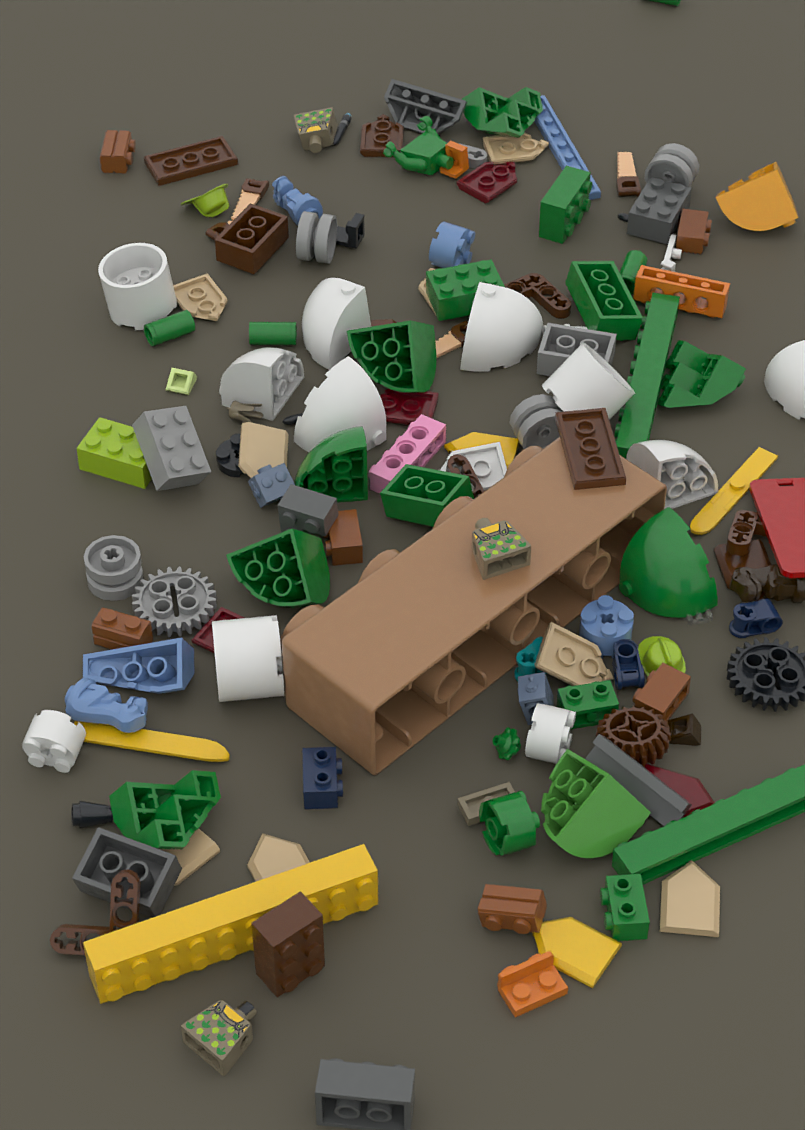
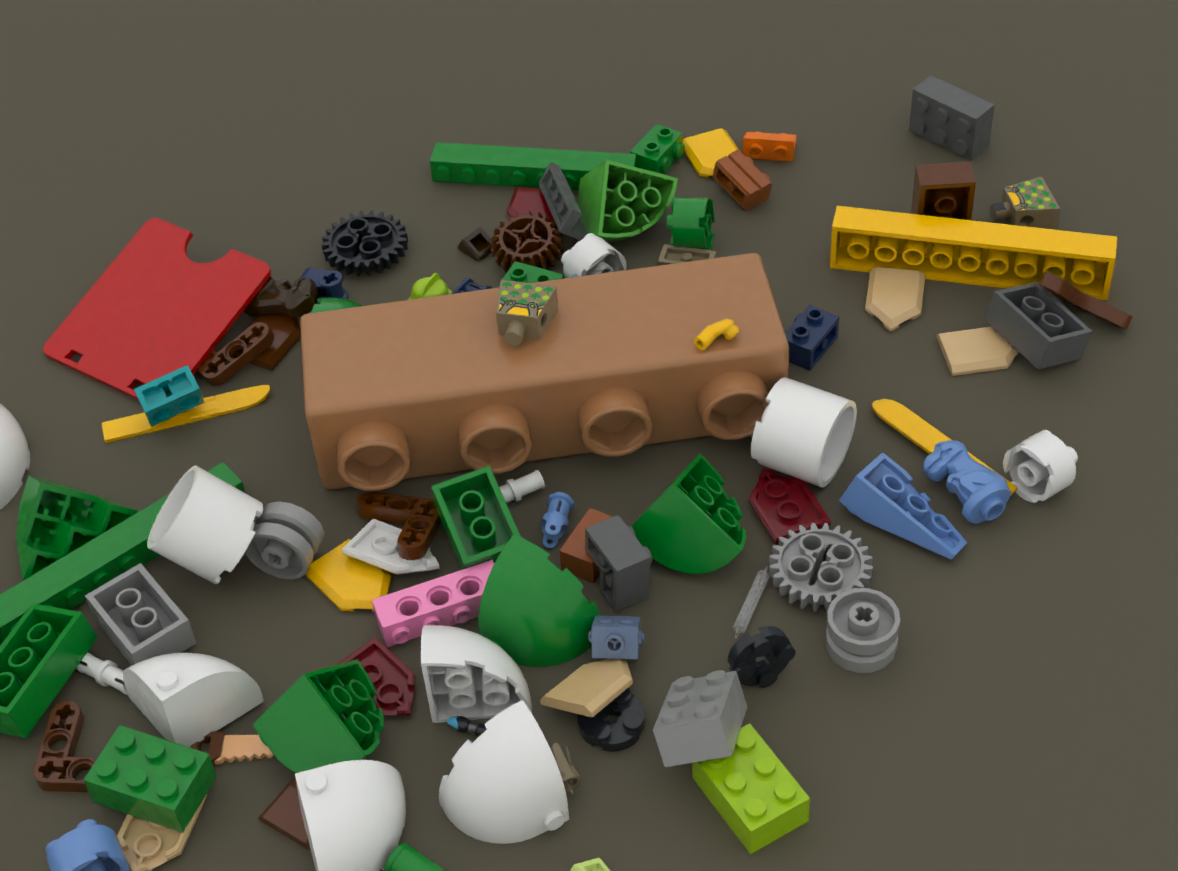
camera: 140 degrees left, 0 degrees up
(90, 814) = (1039, 405): black cone -> none
(120, 630) = (900, 554): dark orange brick -> none
(165, 813) = (974, 359): green brick -> none
(166, 512) = (773, 653): none -> black plate
(210, 561) = (751, 607): none -> white piece
(340, 610) = (714, 330): none -> yellow arm
(384, 538) = (555, 521): none -> medium blue piece
(590, 448) = (326, 374): reddish brown tile -> none
(663, 691) = (468, 261): dark orange brick -> none
(678, 467) = (233, 424): white brick -> none
(690, 902) = (609, 137): tan tile -> none
(736, 467) = (169, 395): none -> teal brick

